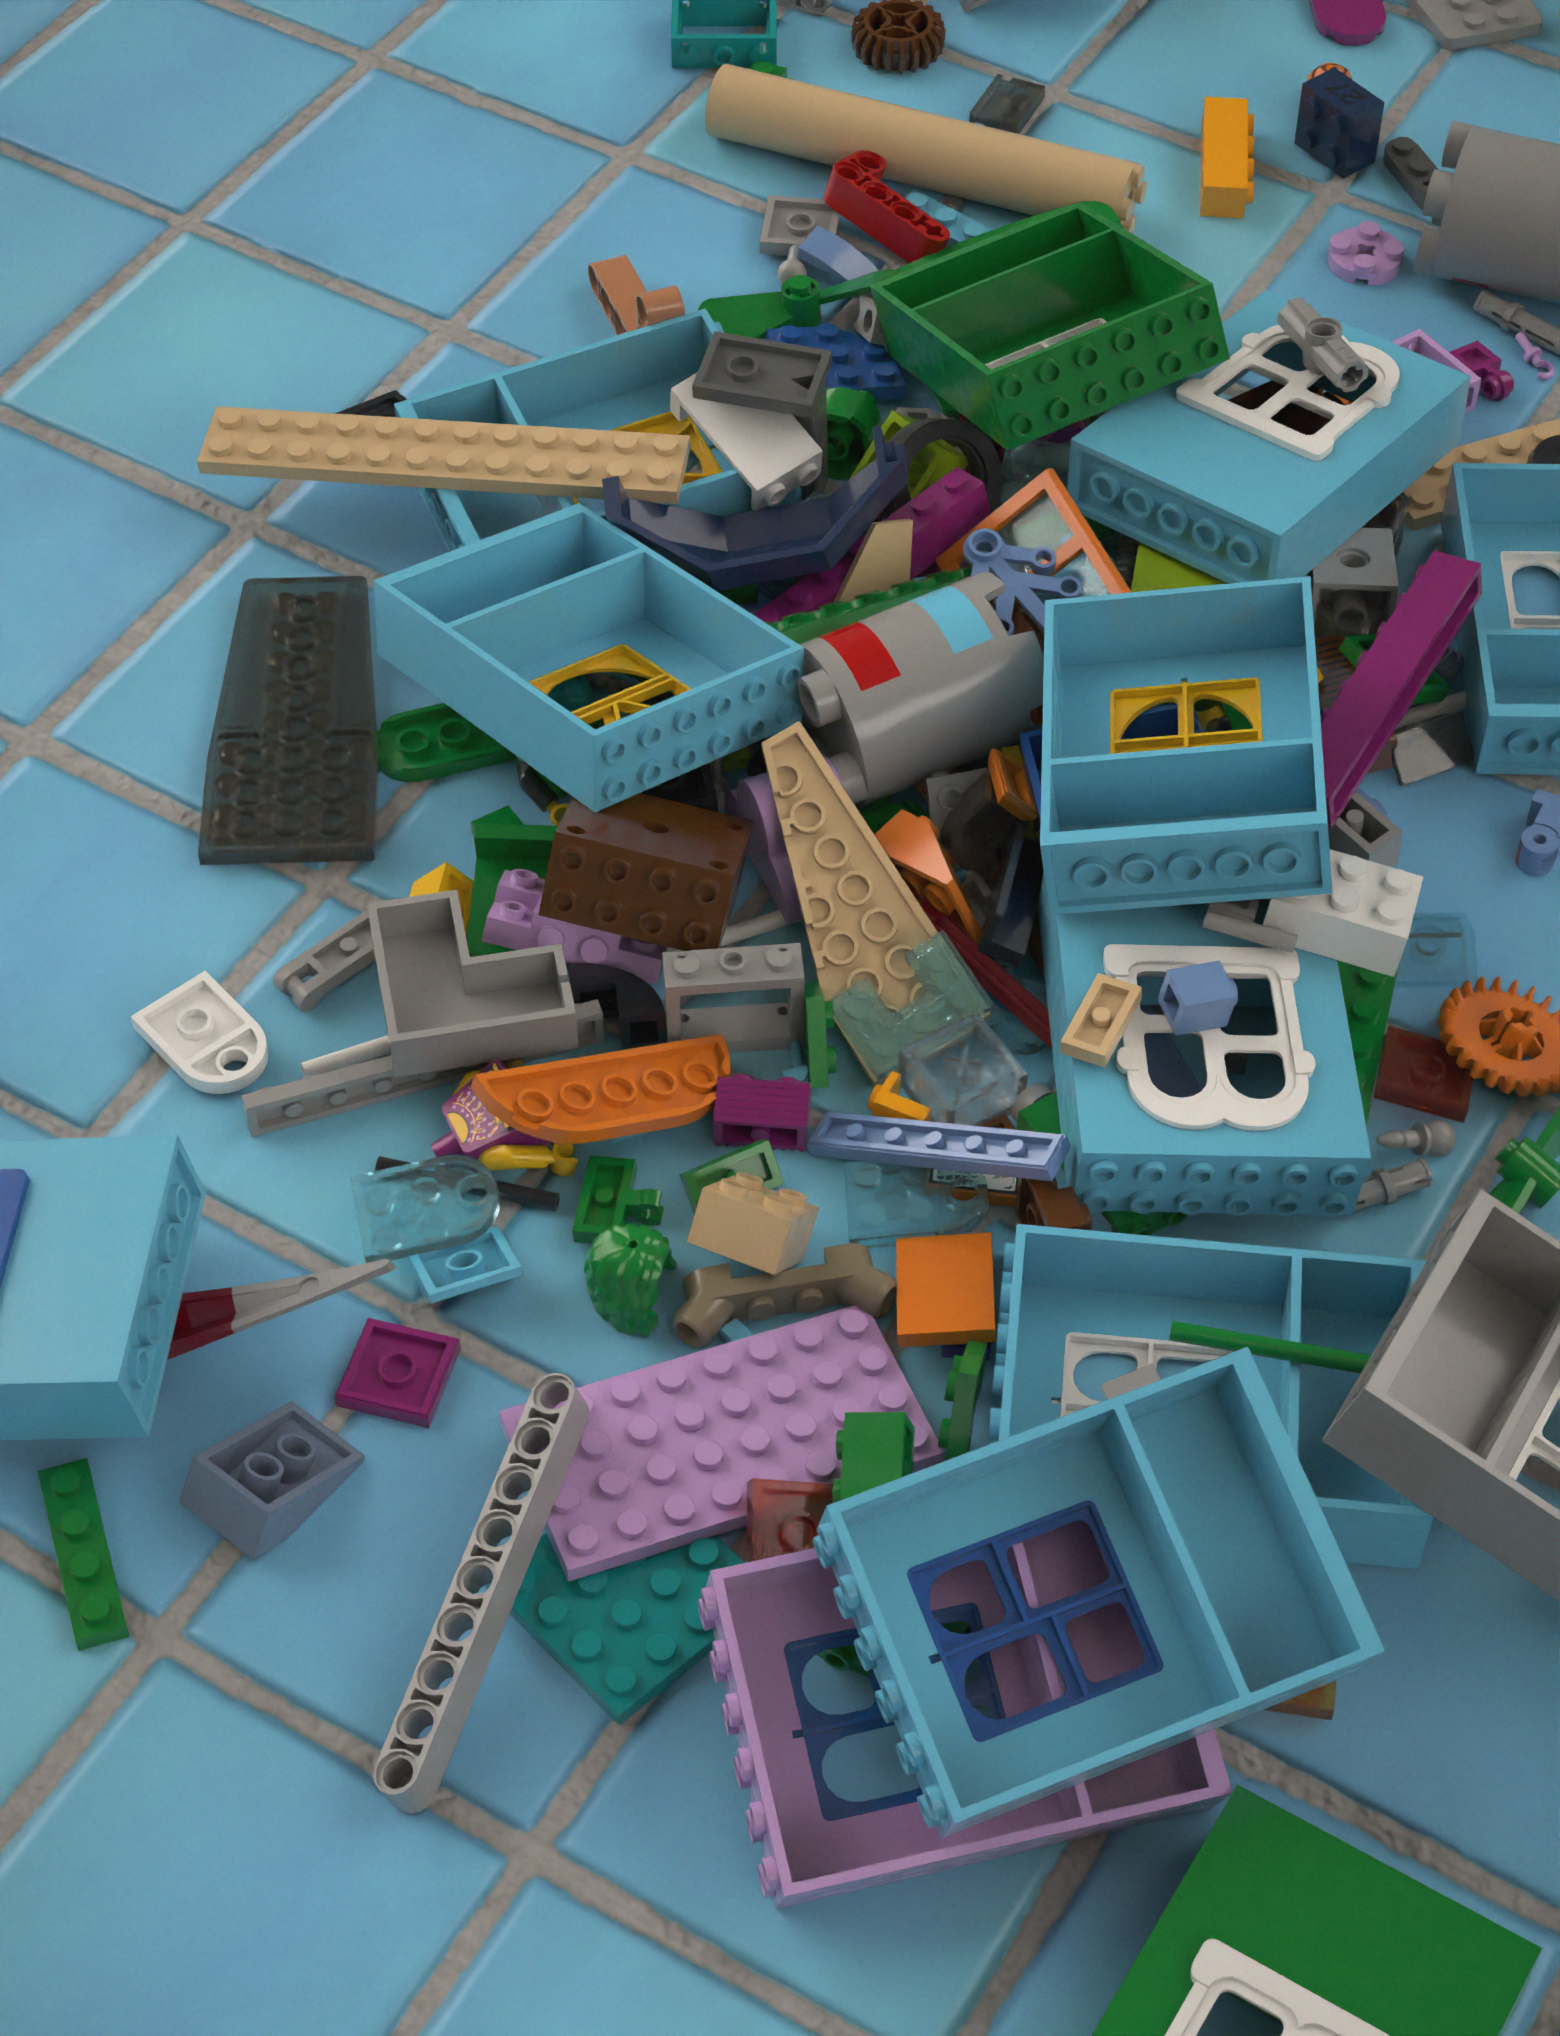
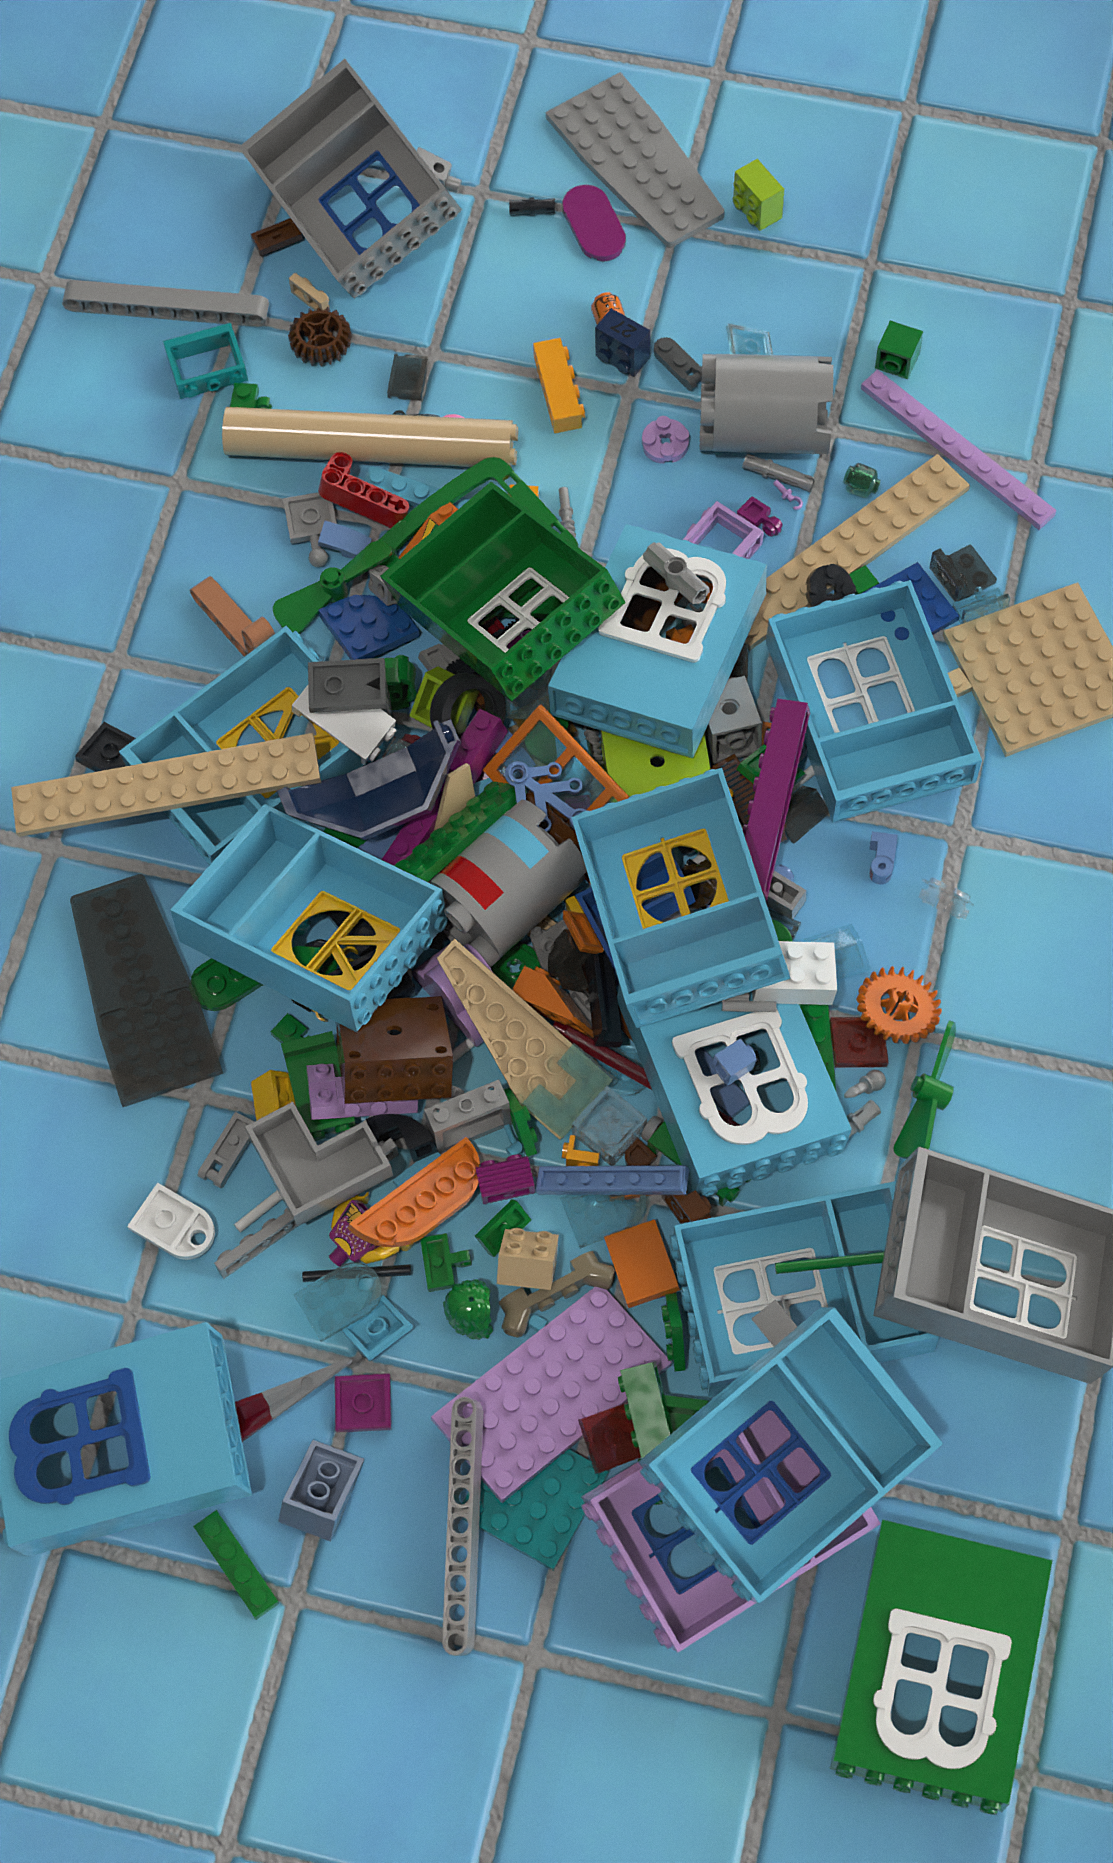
camera: 15 degrees left, 15 degrees up
(1101, 1020) = (686, 1092): tan plate -> none

